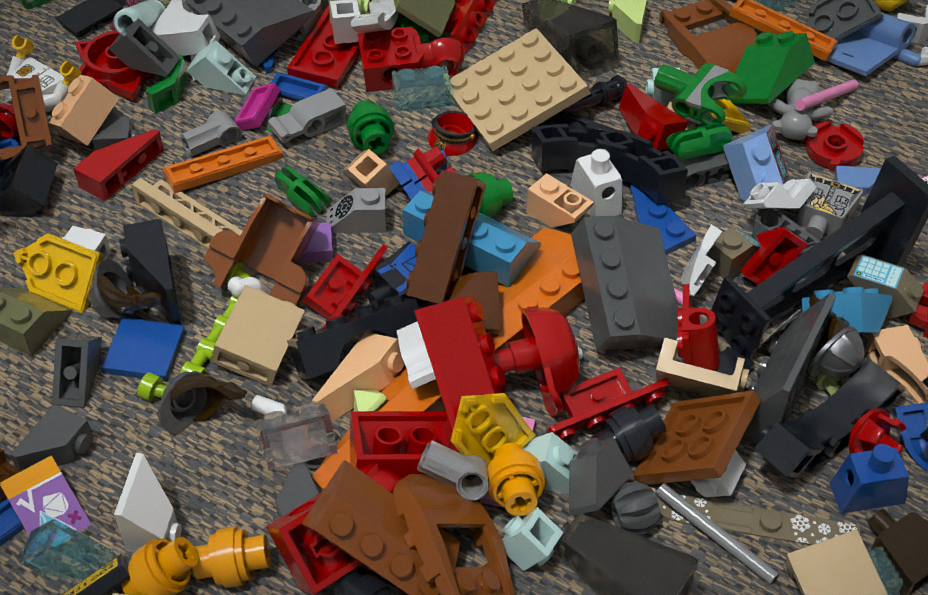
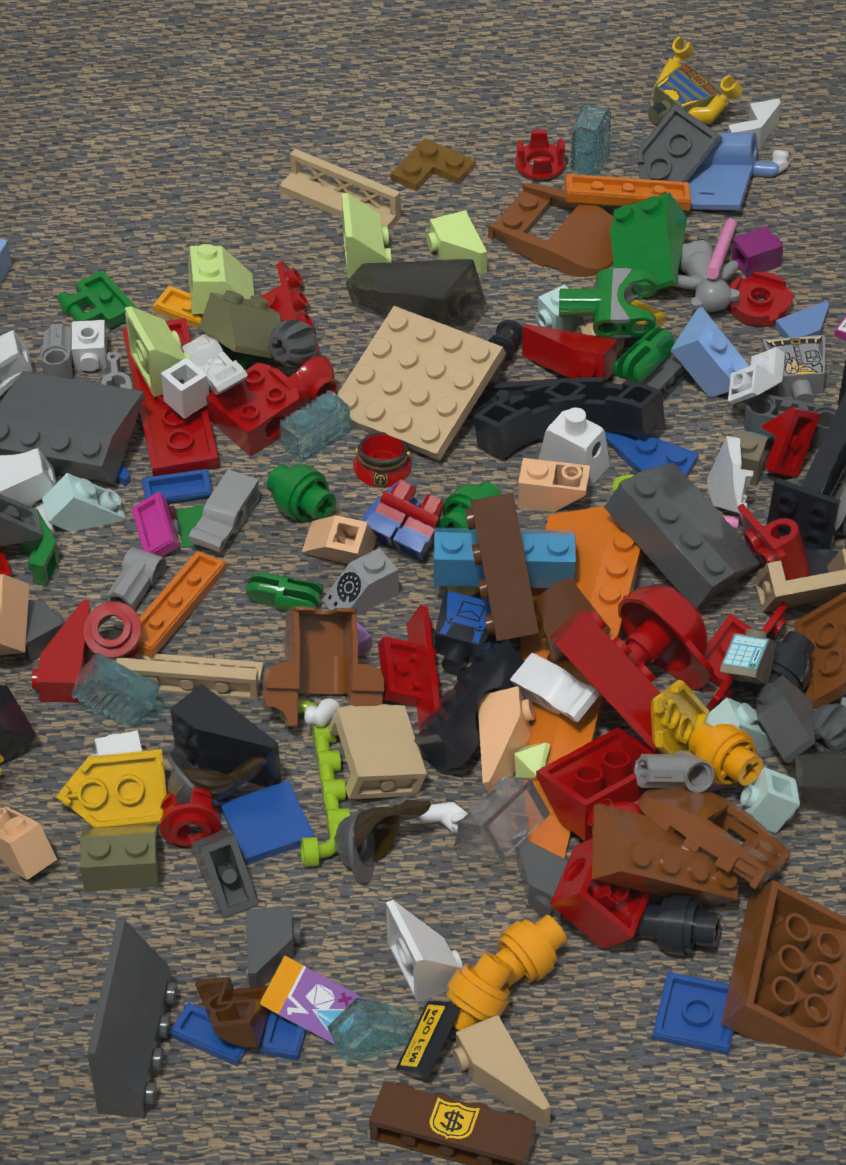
camera: 30 degrees left, 0 degrees up
(83, 317) = (177, 817): none -> red piece
(117, 197) = (115, 690): none -> clear light blue brick
(154, 170) = (126, 644): none -> red piece
(443, 22) = (292, 343): none -> dark grey piece
(589, 407) = (749, 657): none -> slope
(857, 109) = (757, 251): none -> magenta brick

